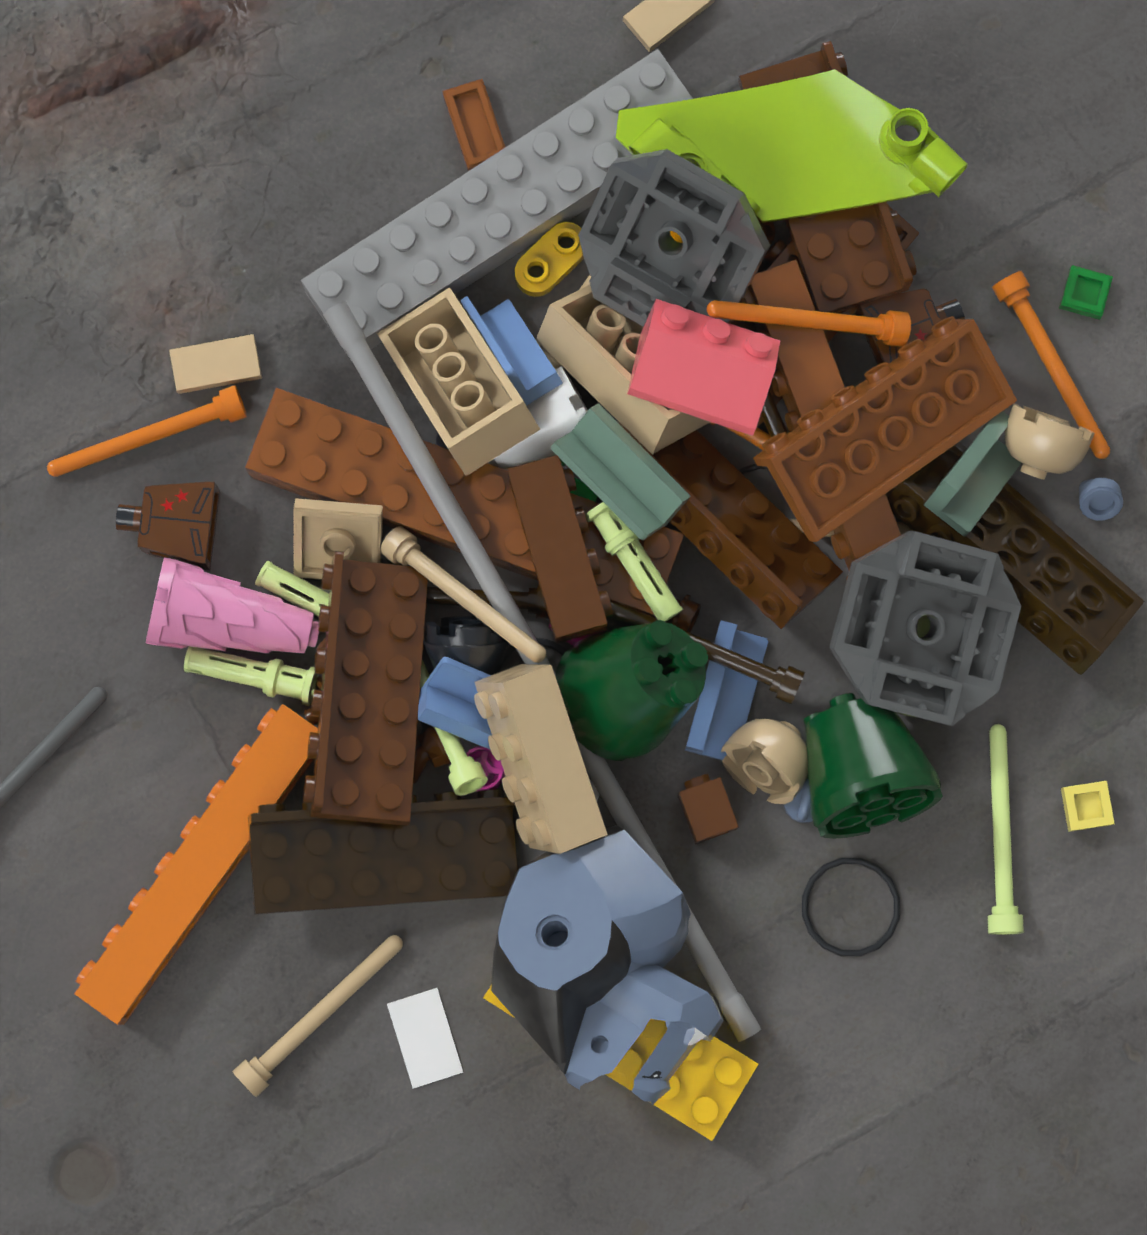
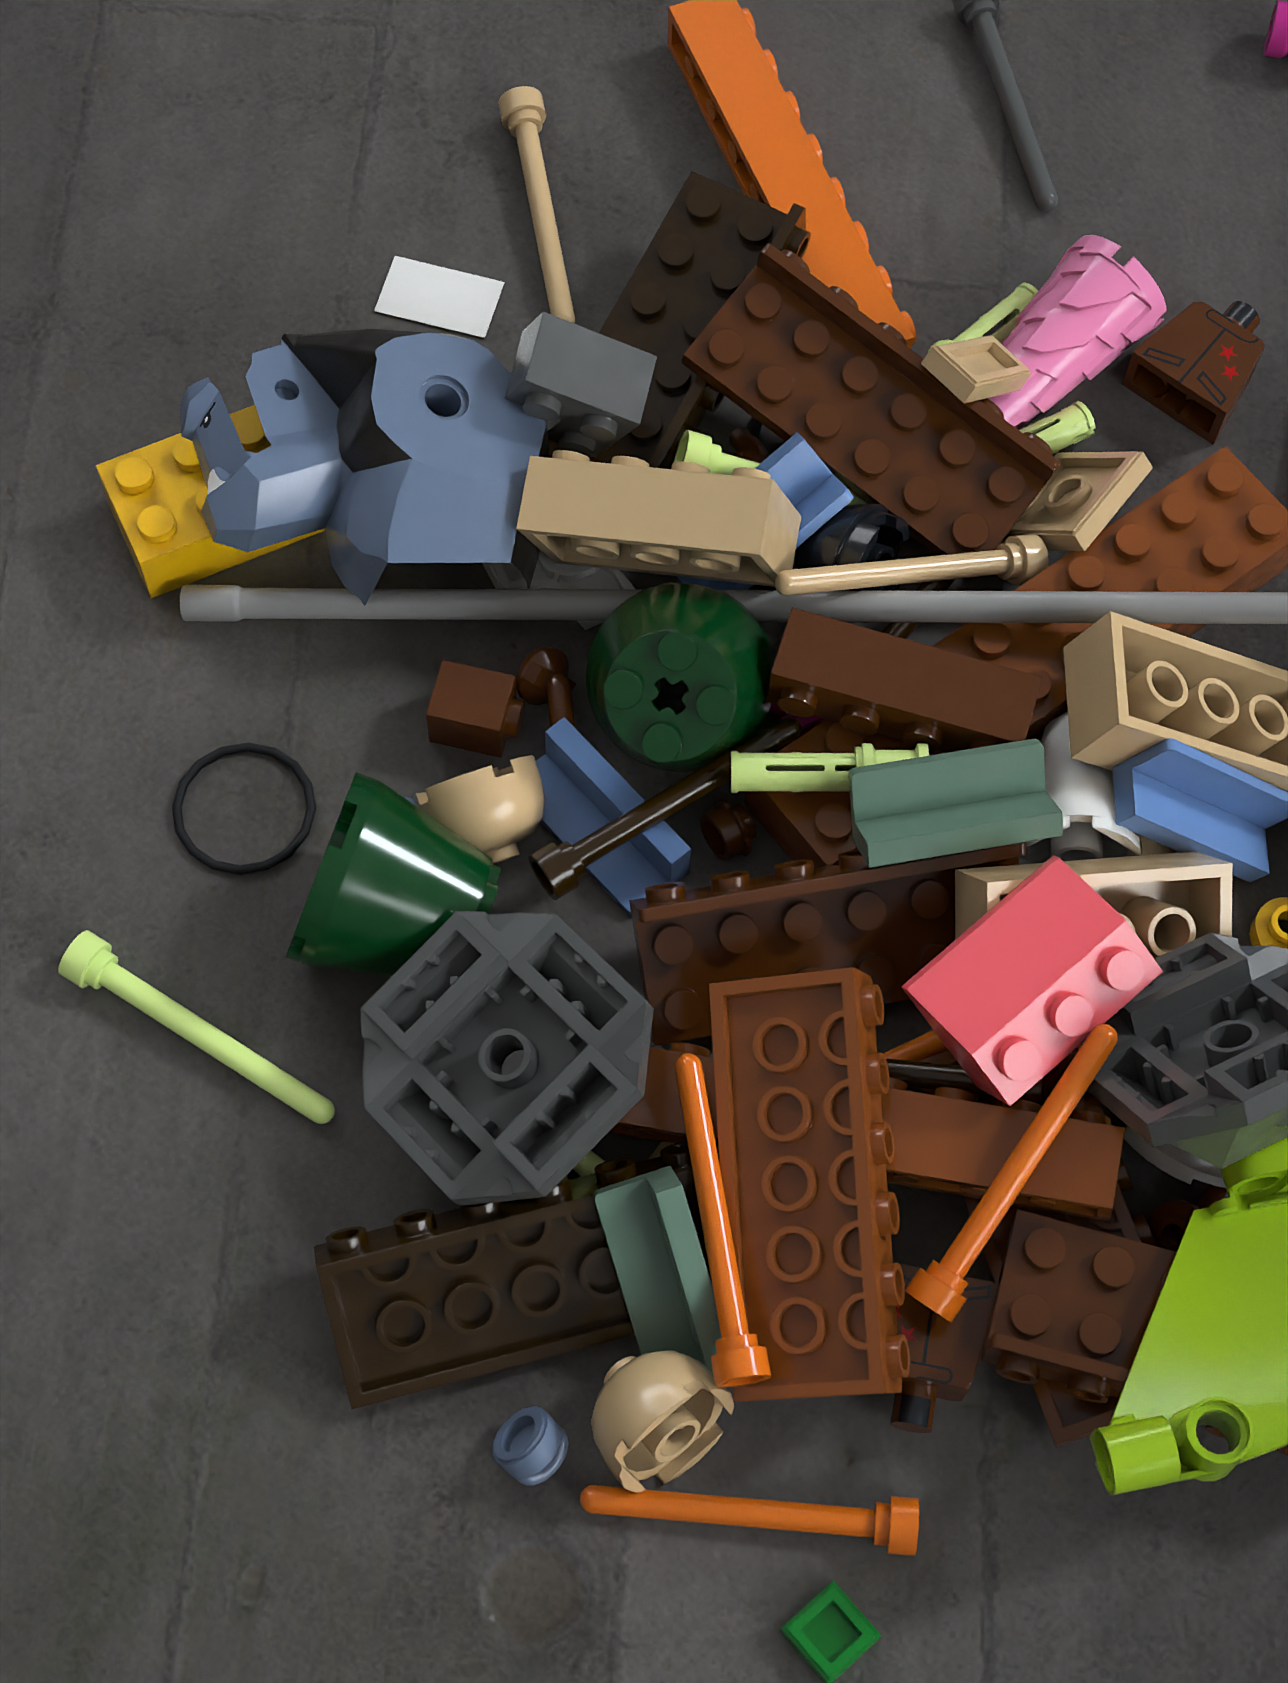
camera: 120 degrees right, 15 degrees down
(304, 636) = (976, 368): none -> tan tile
(482, 861) = (580, 384): none -> dark grey brick
(657, 781) = (544, 680): none -> reddish brown plate
(1000, 405) = (738, 1354): none -> orange piece
(1087, 806) = (148, 1152): light yellow plate -> none

